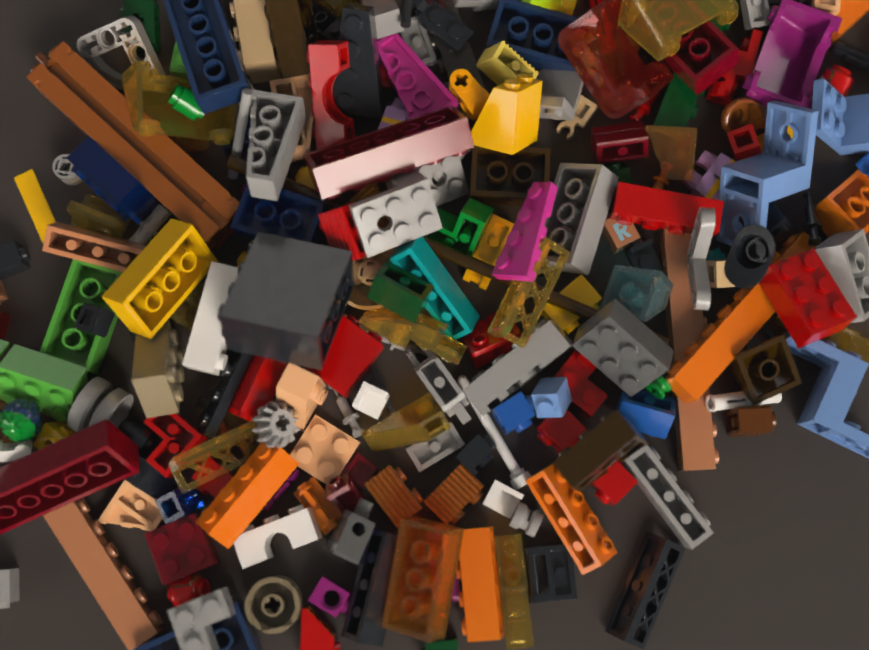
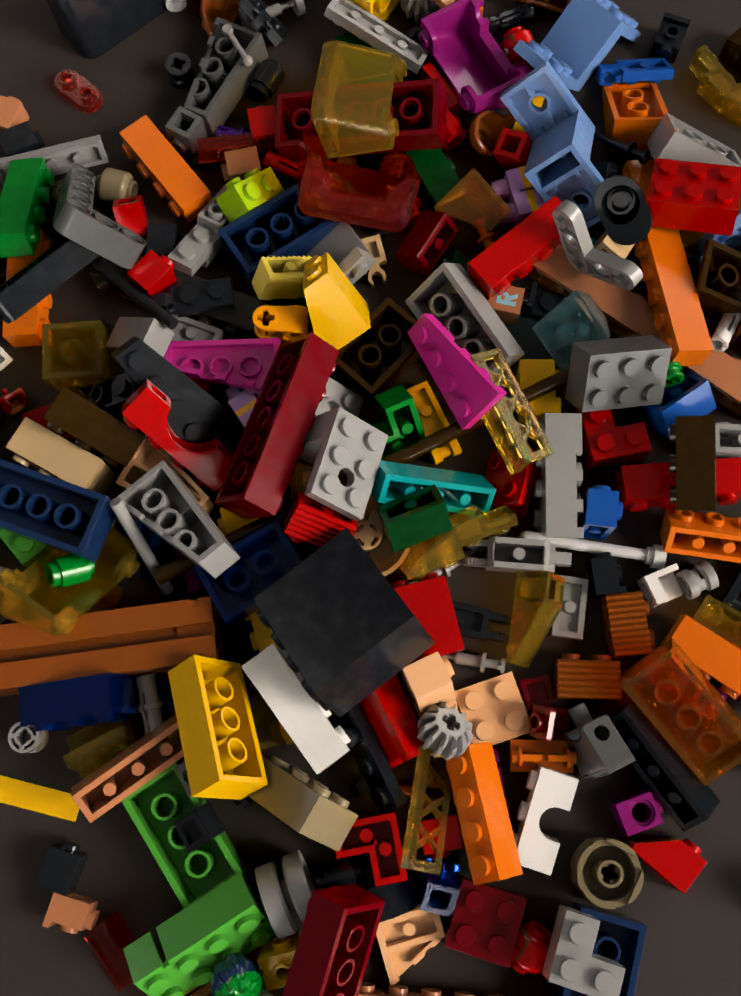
camera: 50 degrees left, 5 degrees down
(370, 400) = (485, 628): white panel -> none
(551, 397) = (612, 467): medium blue brick -> none

